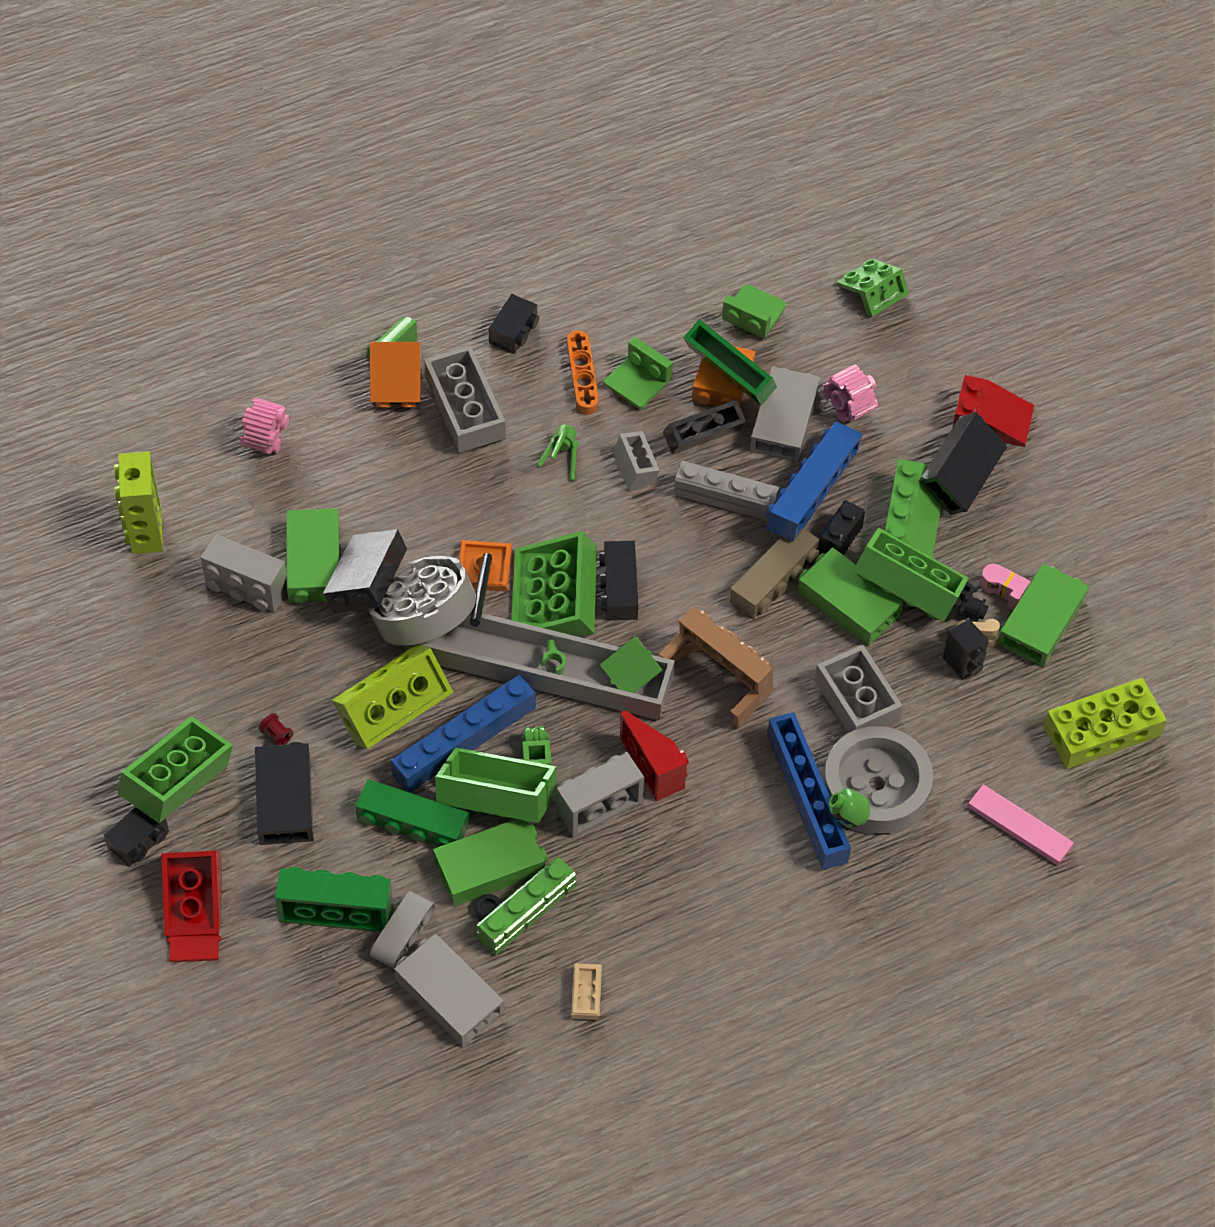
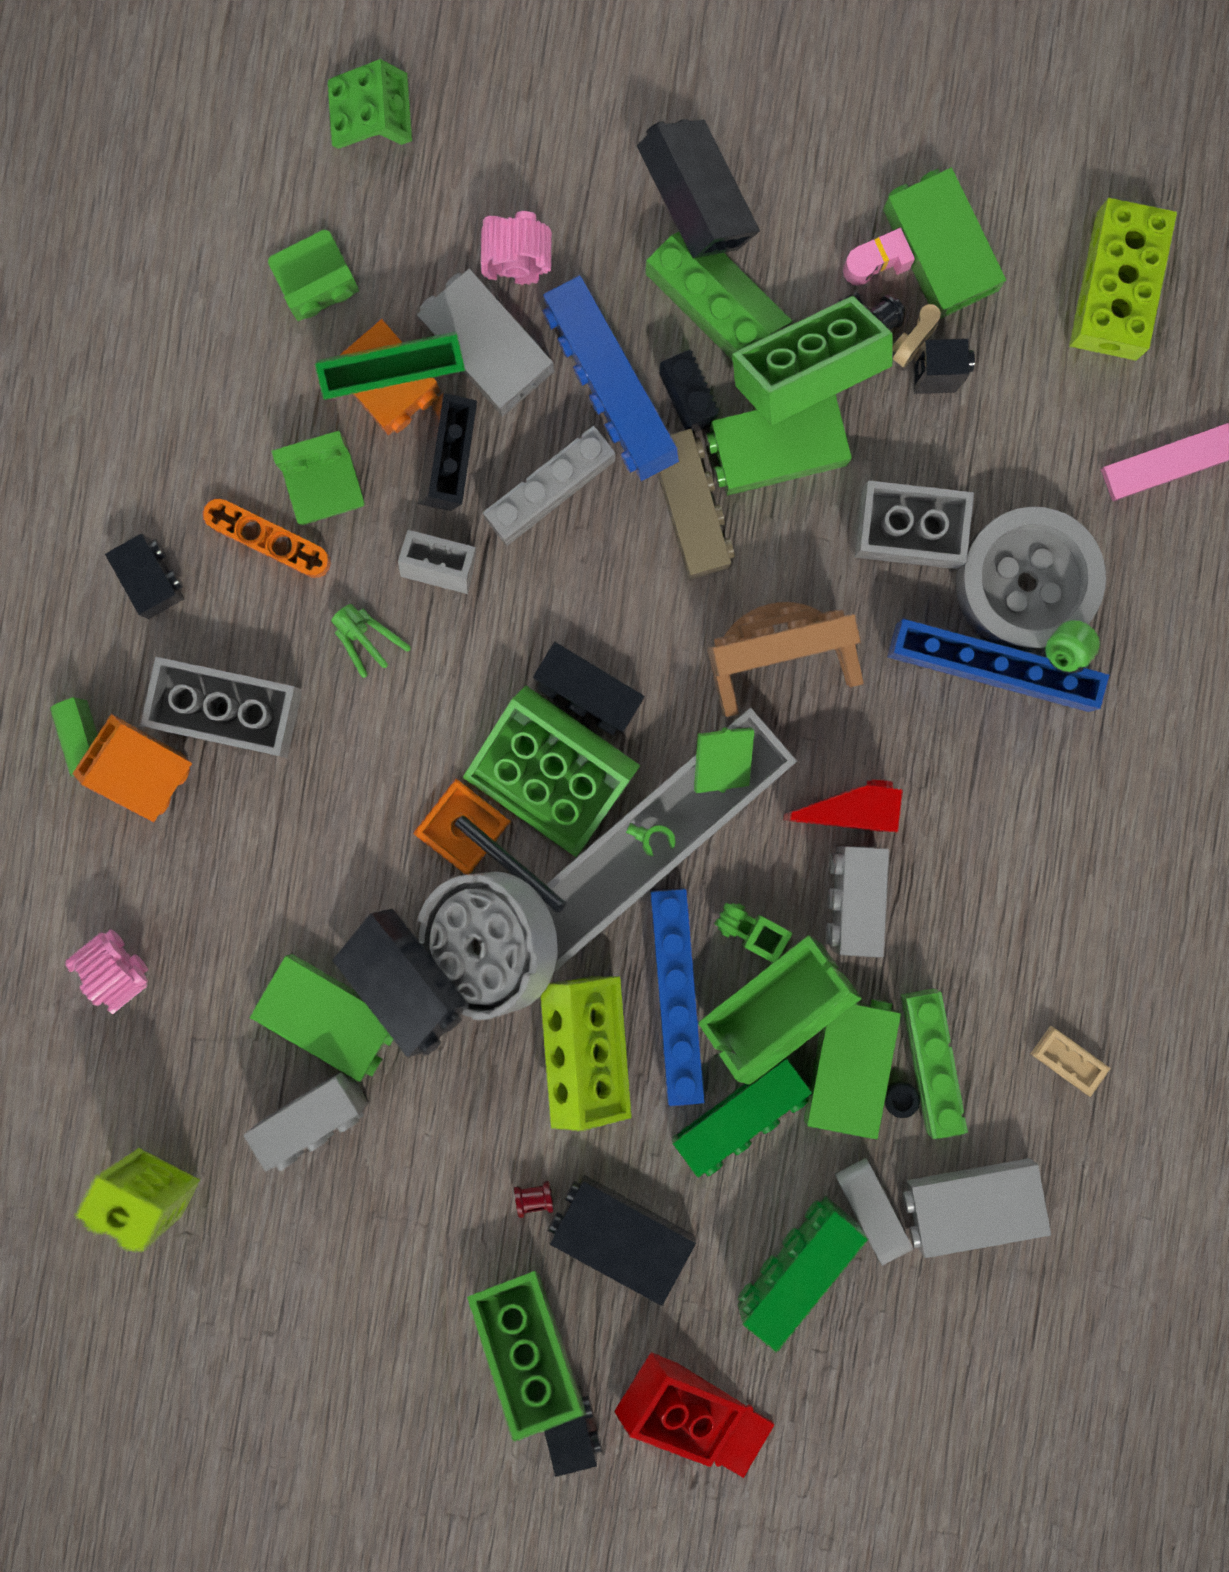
camera: 55 degrees left, 30 degrees up
(1000, 408) = (638, 96): red slope -> none

